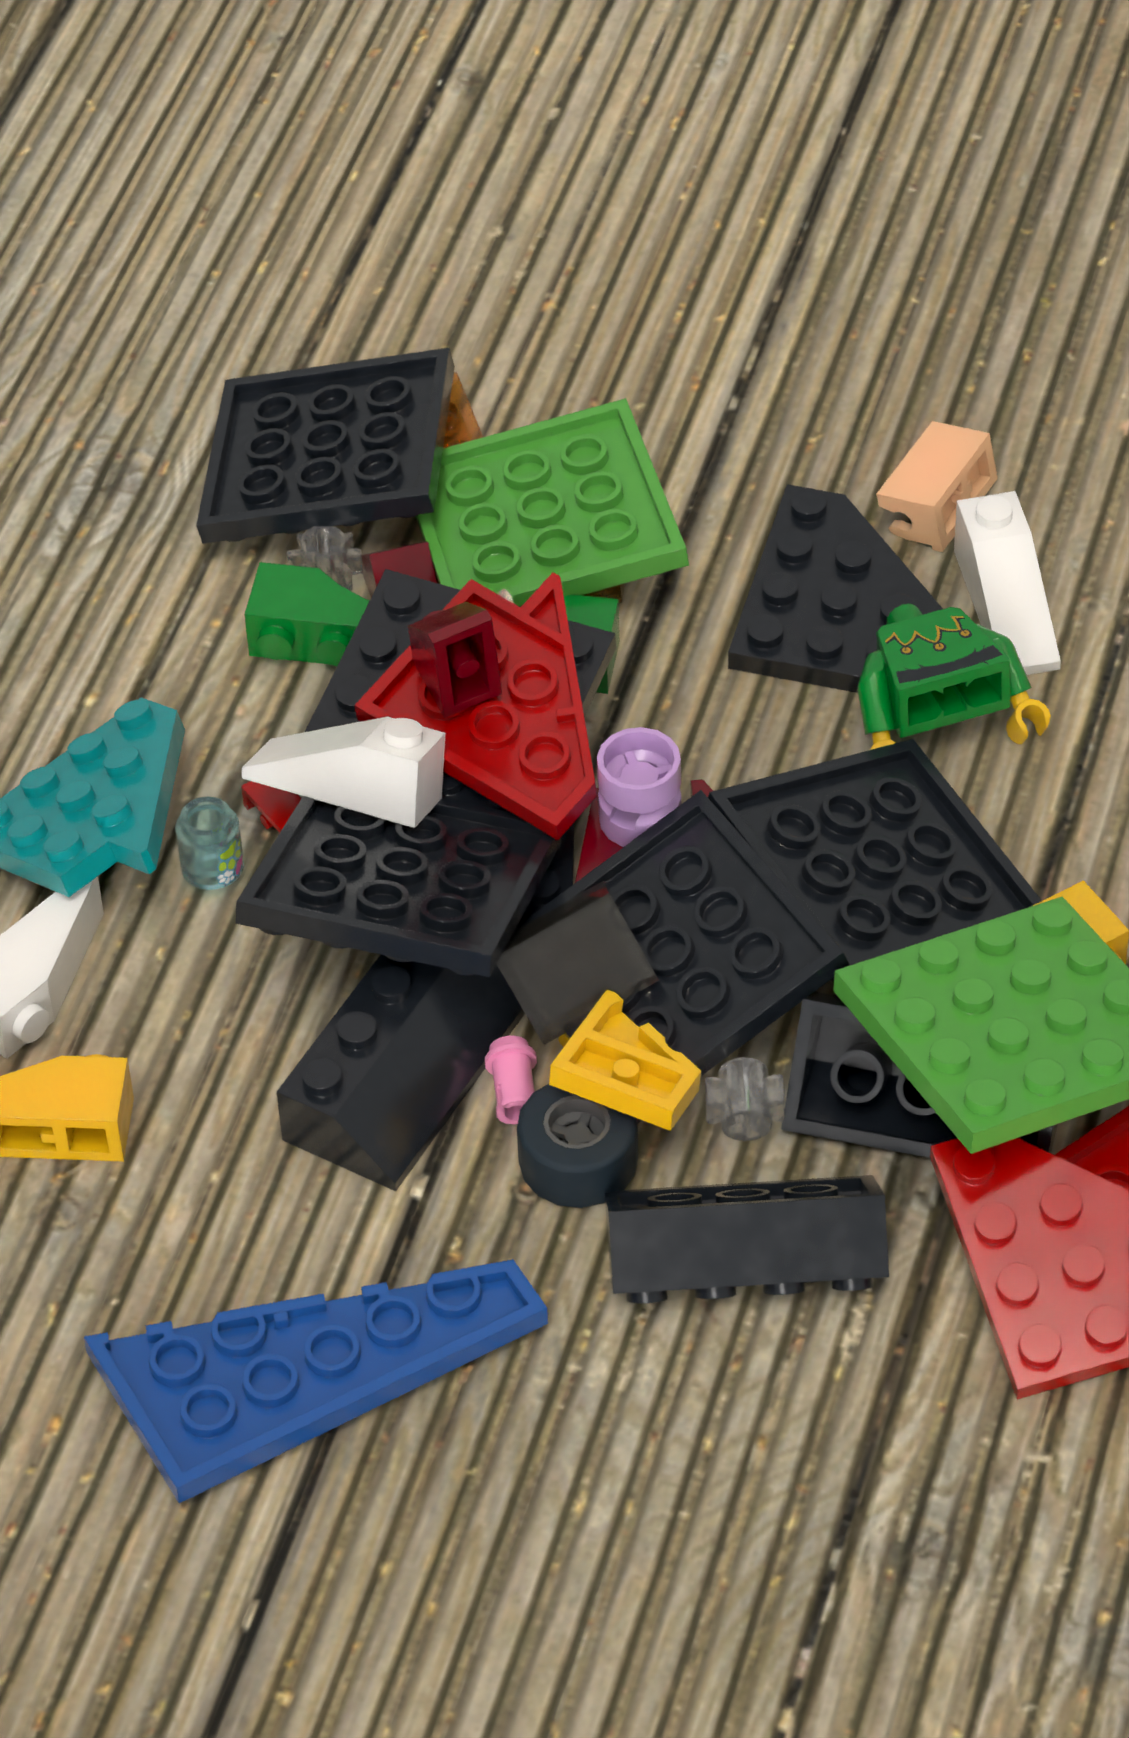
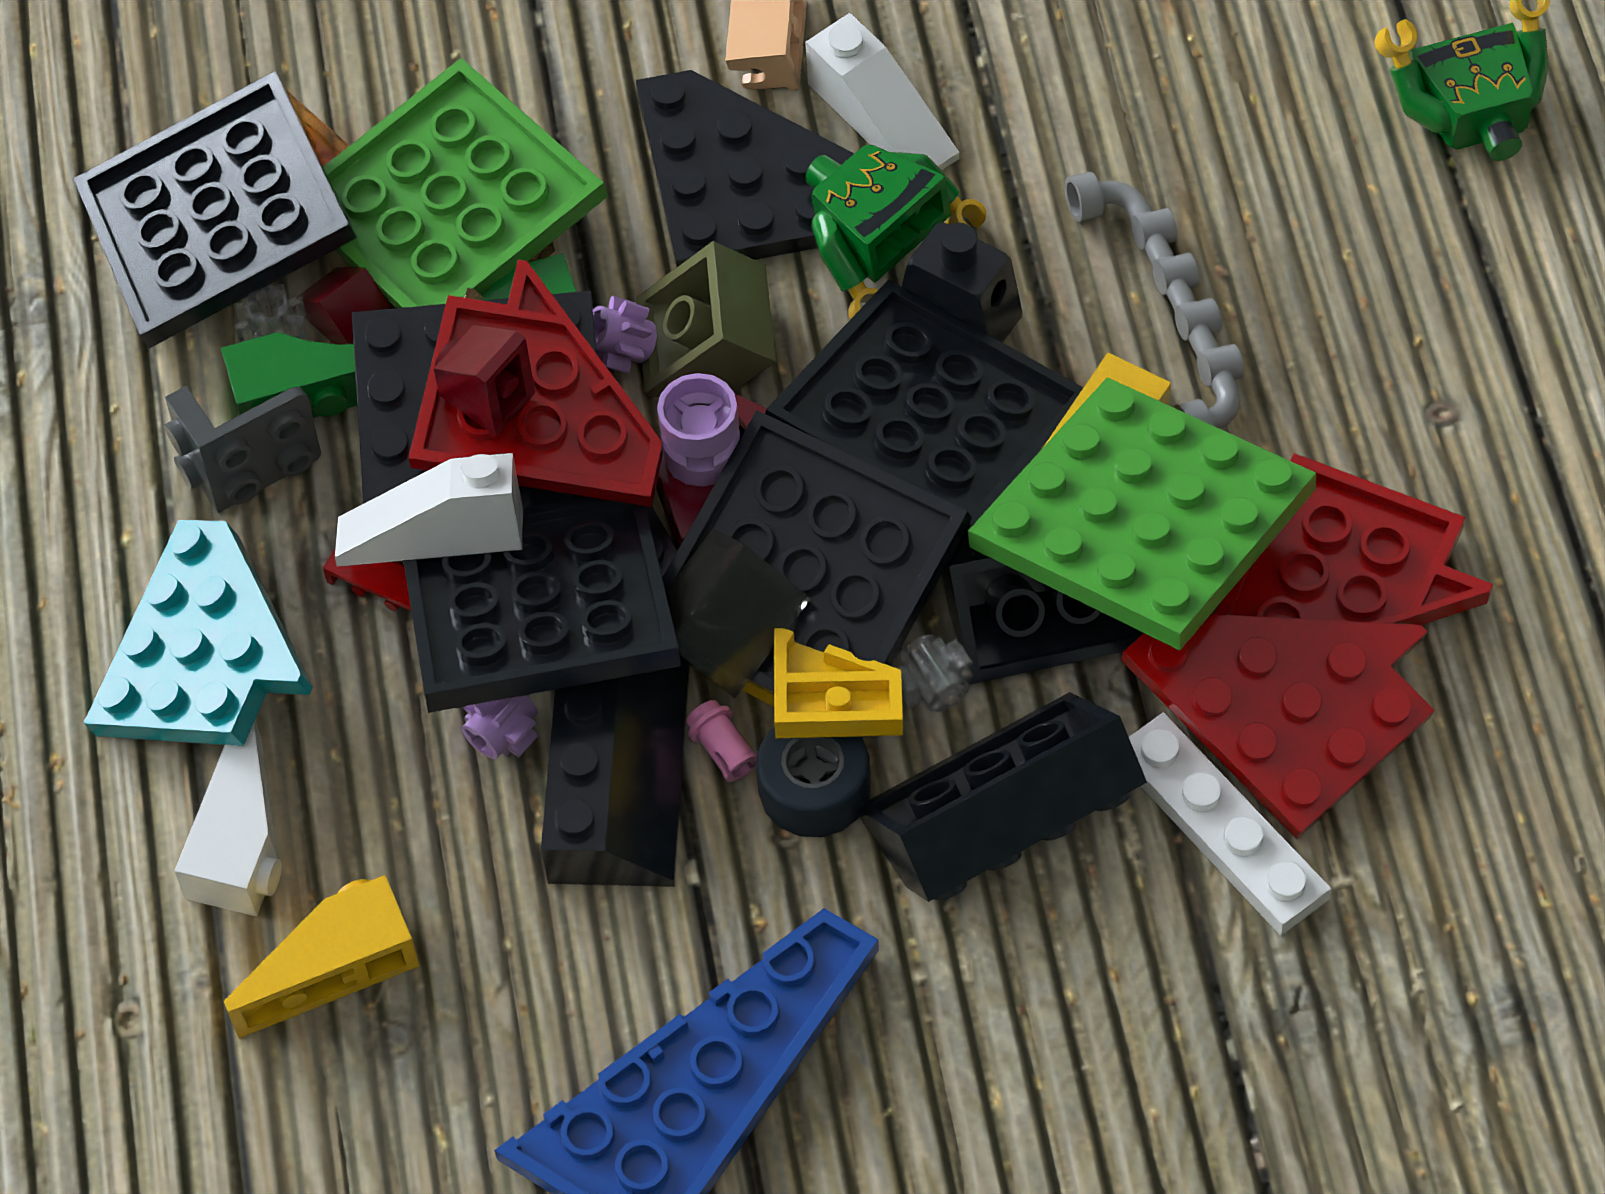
camera: 25 degrees left, 10 degrees up
(209, 843) = (332, 637): clear light blue brick -> none
(231, 654) = (245, 452): none -> dark grey bracket
(316, 977) = (501, 726): none -> lavender gear
(633, 692) = (623, 334): none -> lavender gear
(728, 712) = (709, 320): none -> olive slope
(949, 1353) = (1226, 826): none -> white plate
(985, 767) = (966, 279): none -> black torso

